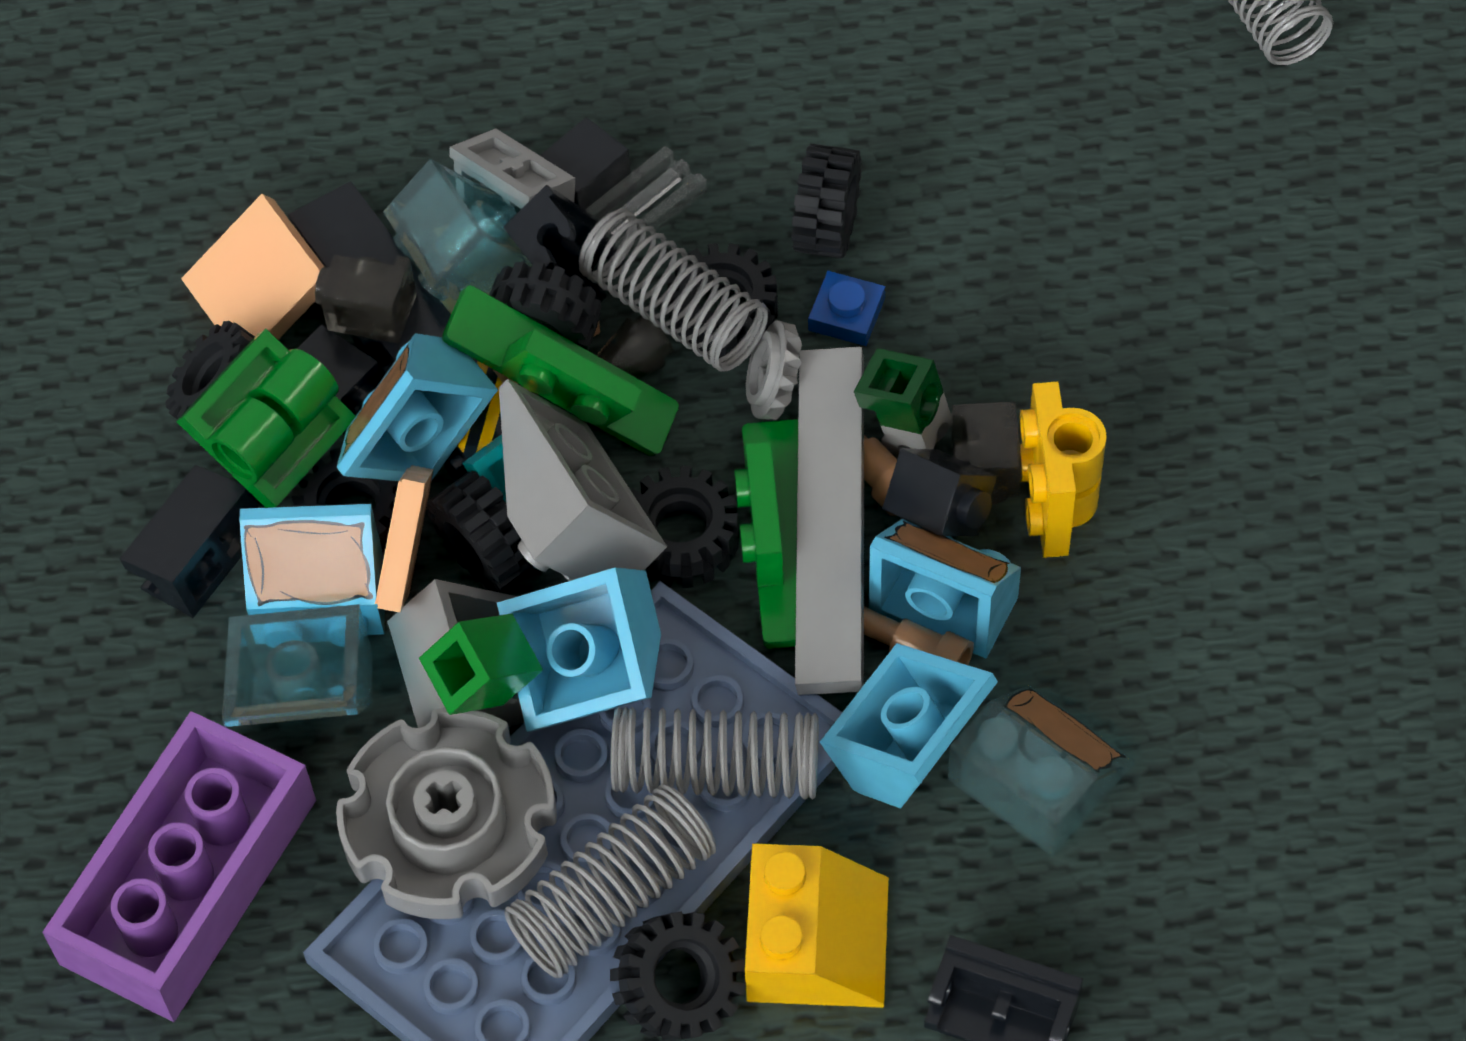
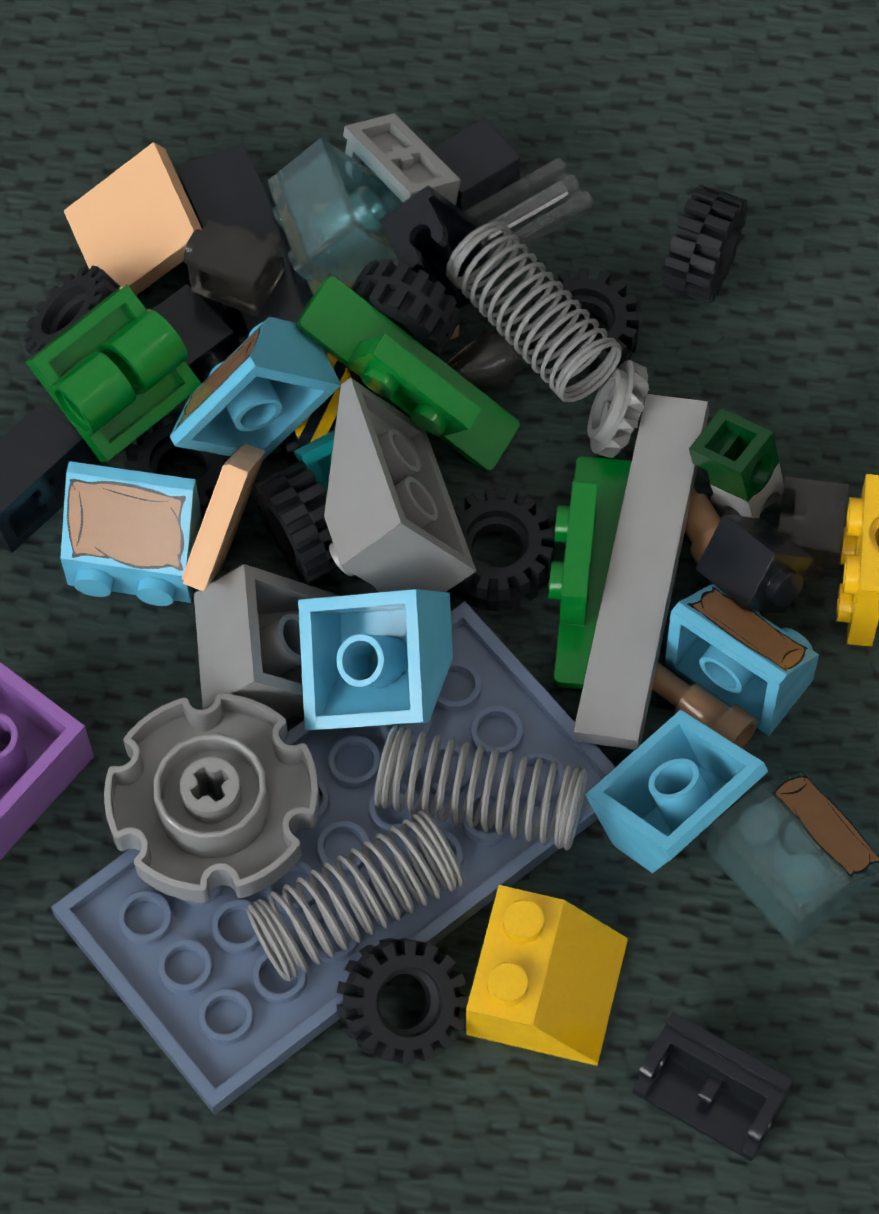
camera: 10 degrees right, 5 degrees up
(297, 666) = (97, 626): clear light blue slope -> none
(480, 663) = (269, 659): green brick -> none
(846, 308) = (704, 355): blue plate -> none

